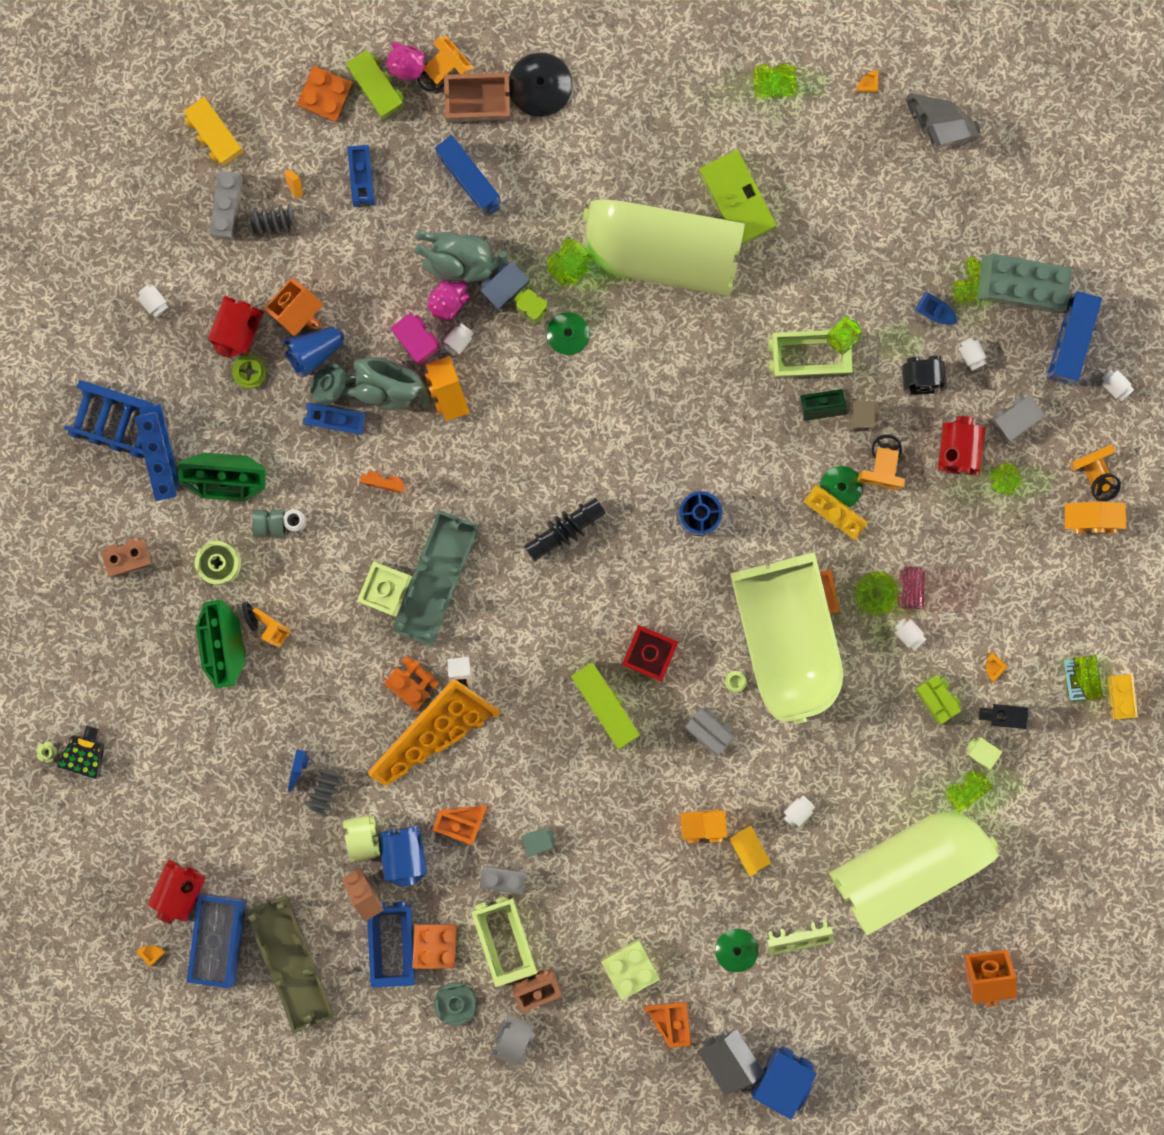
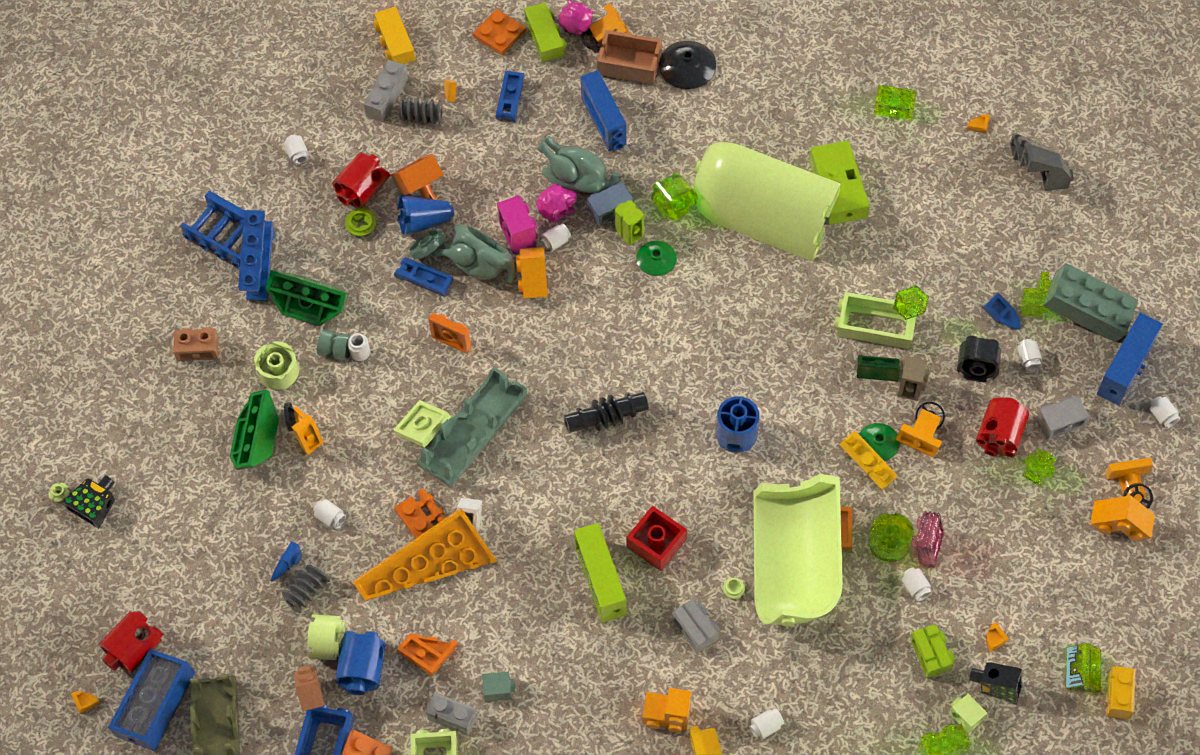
camera: 15 degrees right, 25 degrees down
(322, 707) = (329, 514): none -> white brick

